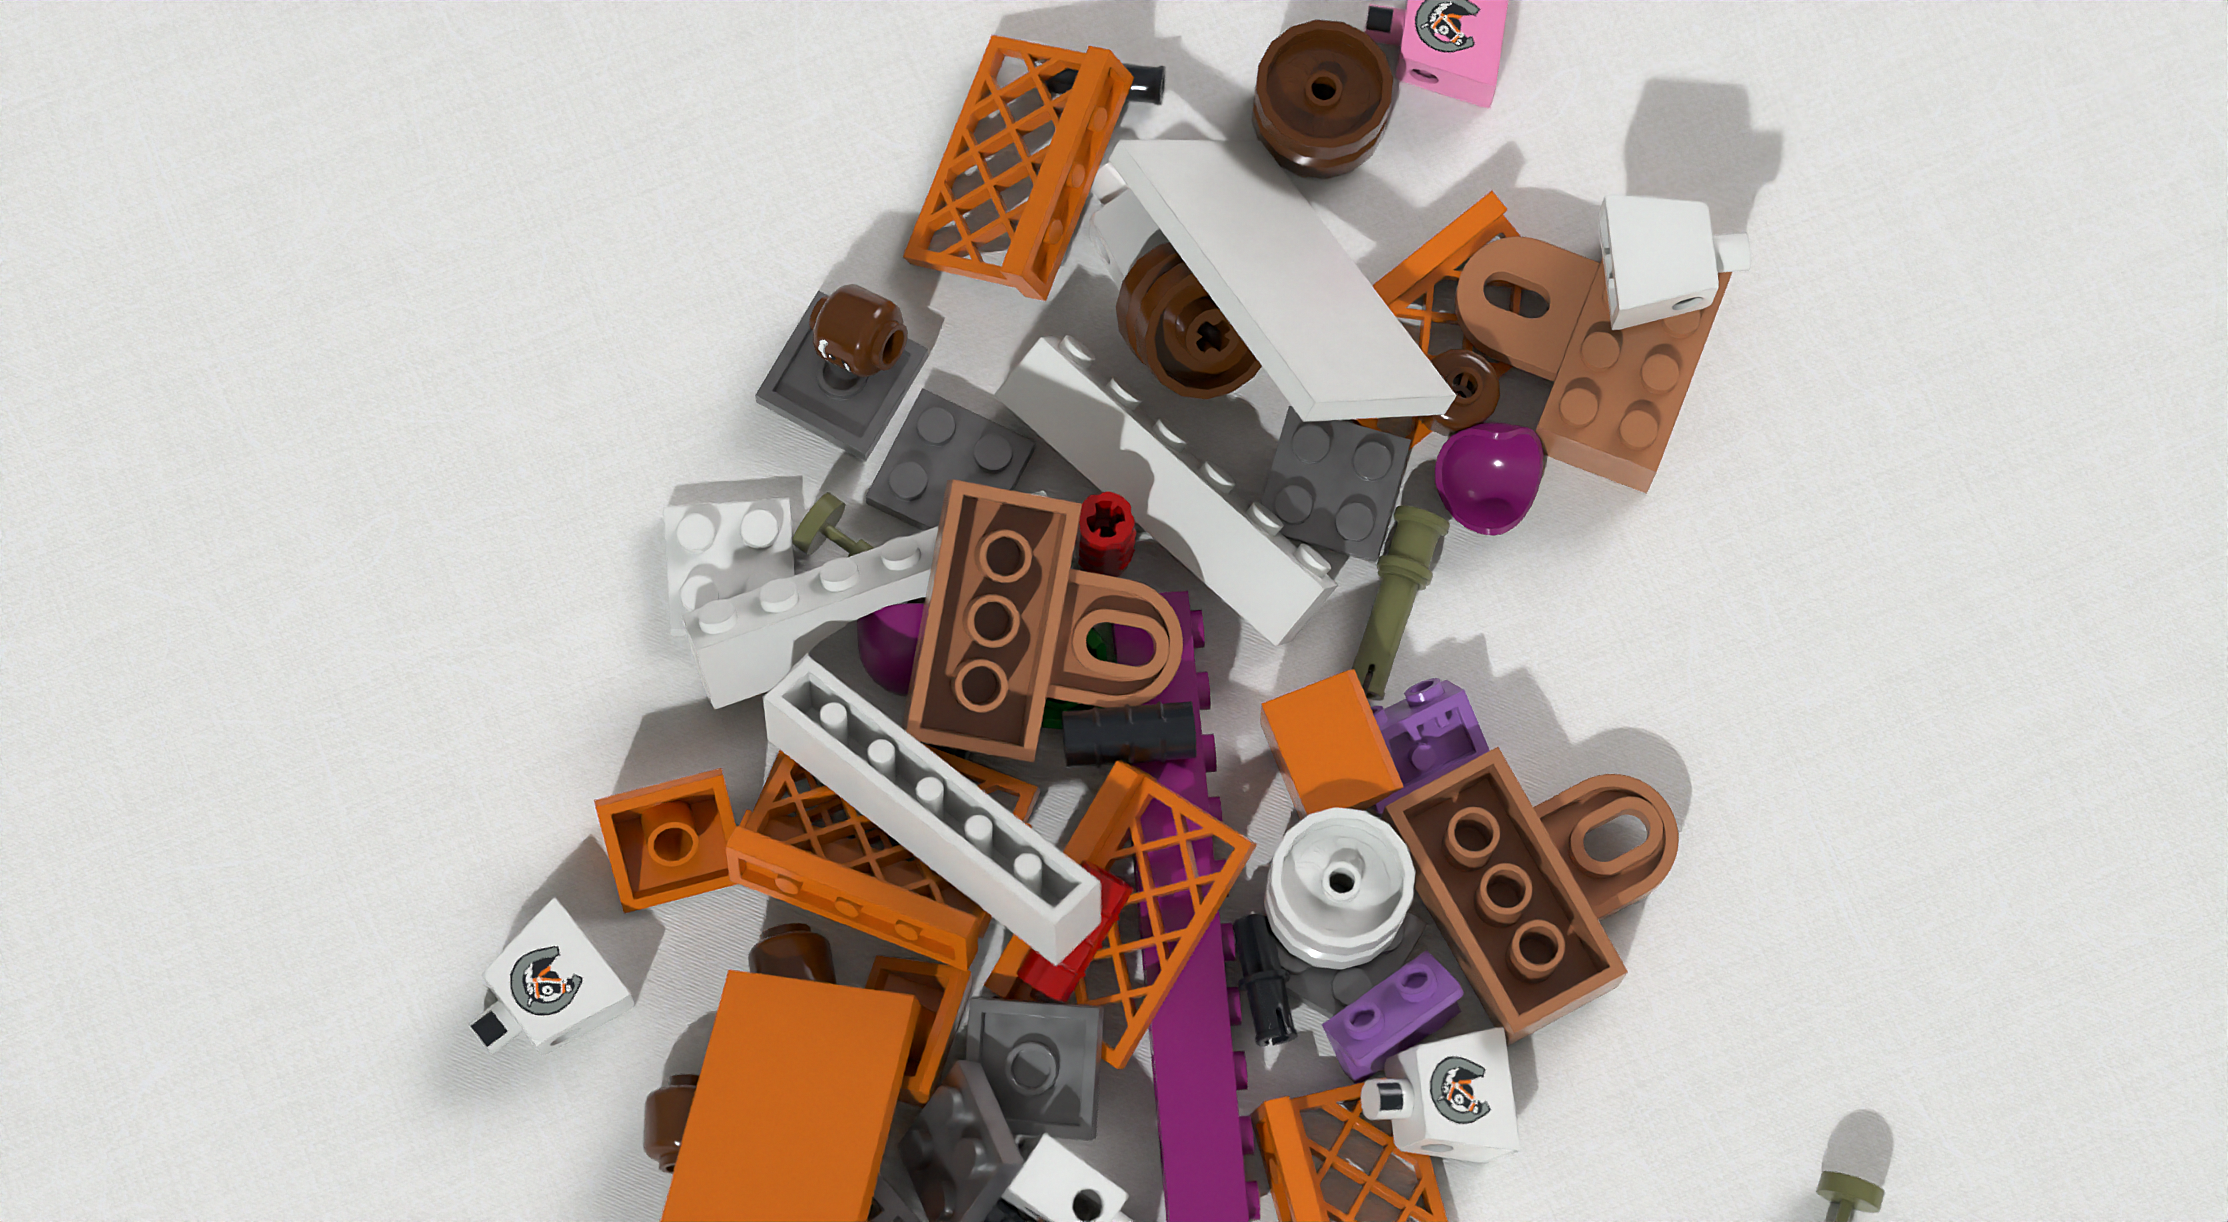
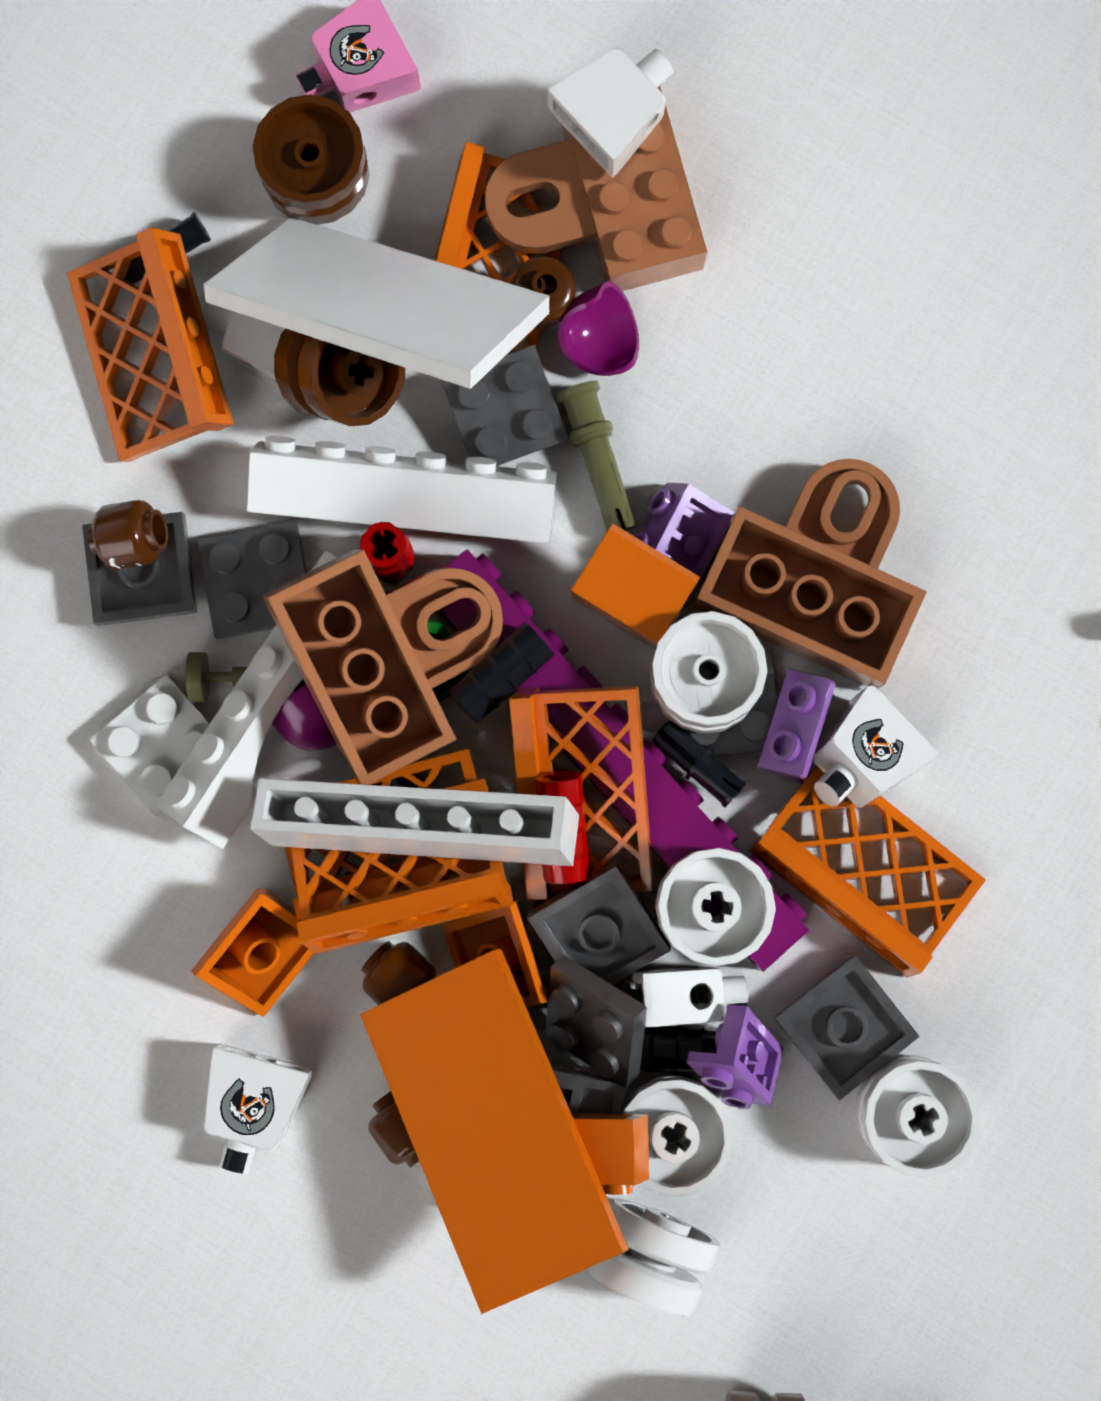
camera: 30 degrees left, 10 degrees up
(1178, 1083) = (745, 912): none -> white wheel

